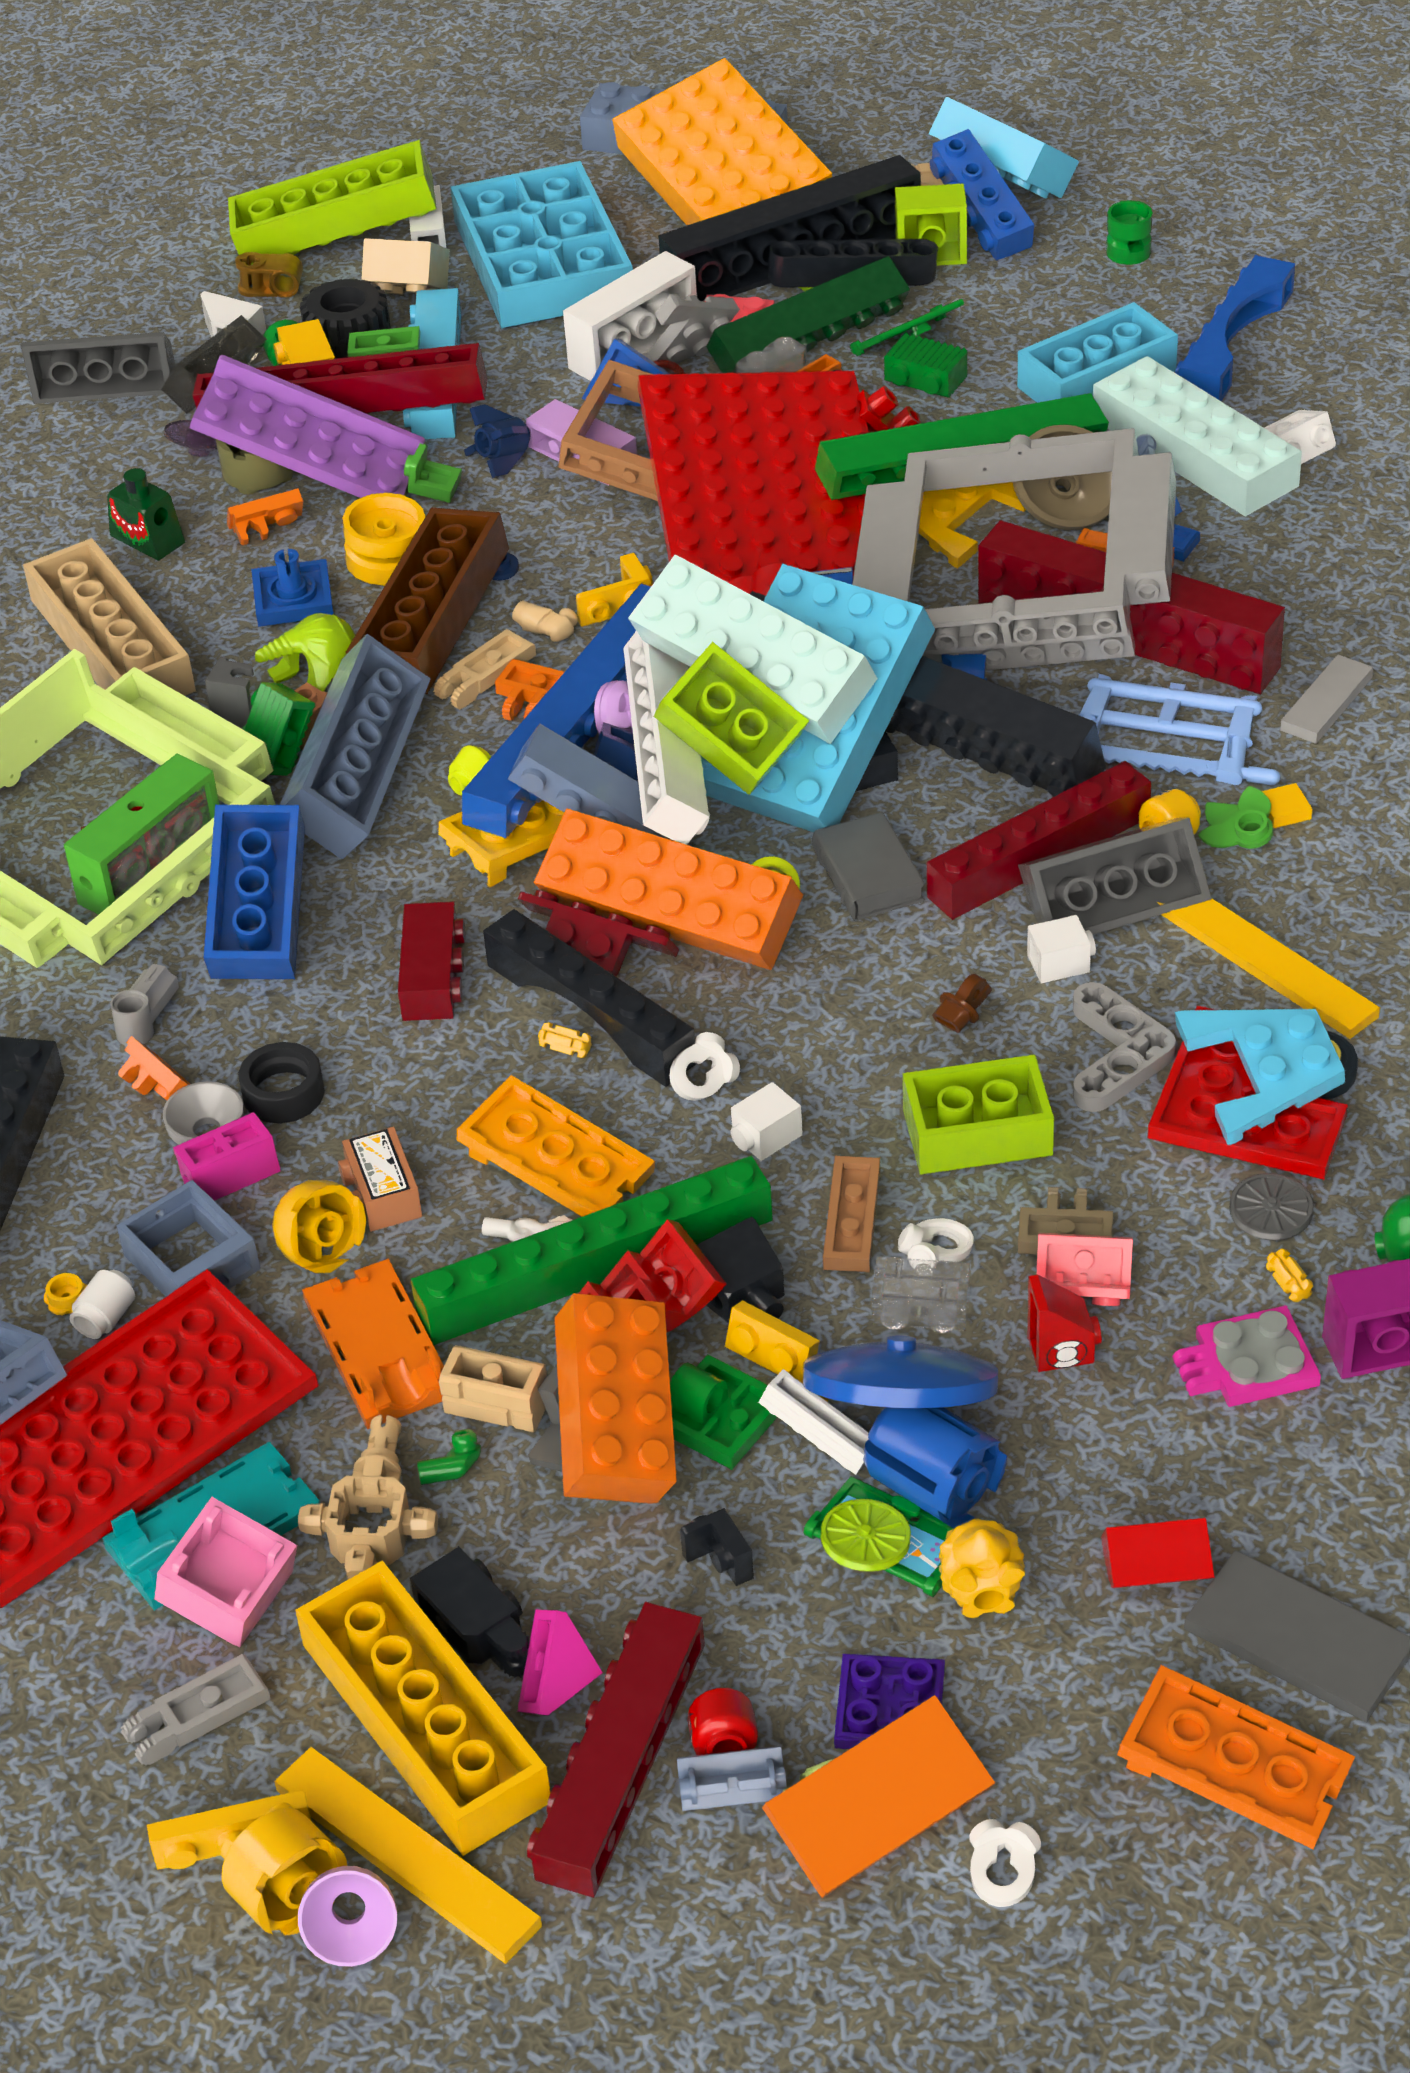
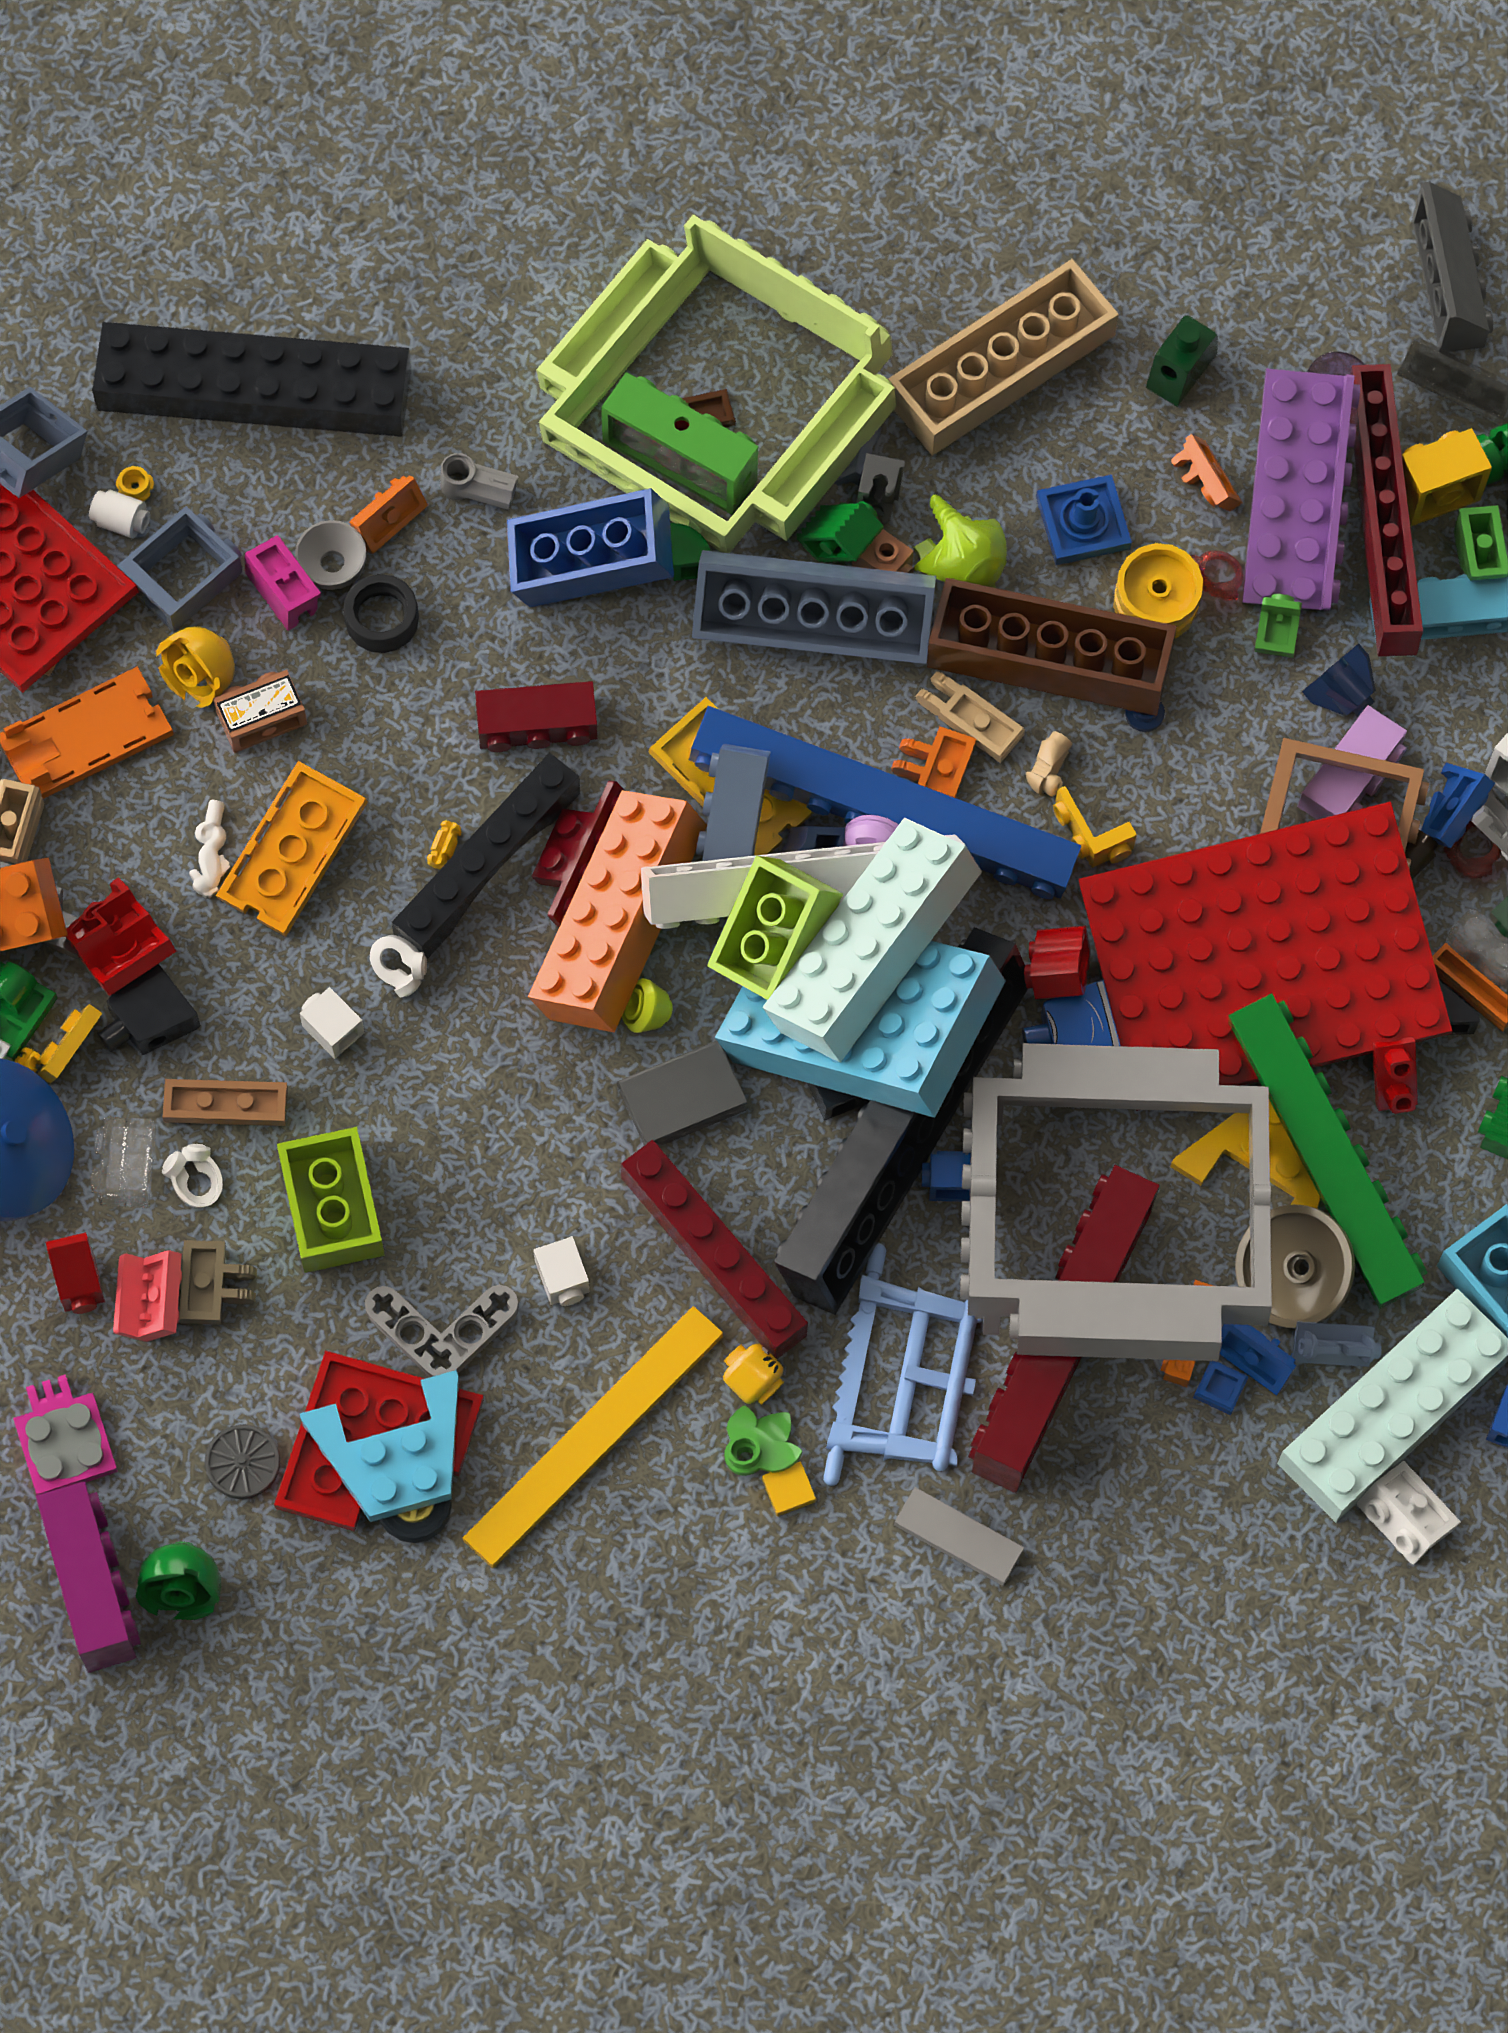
camera: 80 degrees right, 25 degrees up
(466, 766) = (801, 719): neon yellow cone -> none
(583, 1250) = (174, 892): green brick -> none
(960, 1008) = (488, 1184): reddish brown piece -> none
(1119, 878) = (652, 1318): dark grey slope -> none
(1289, 1275) = (156, 1473): yellow piece -> none

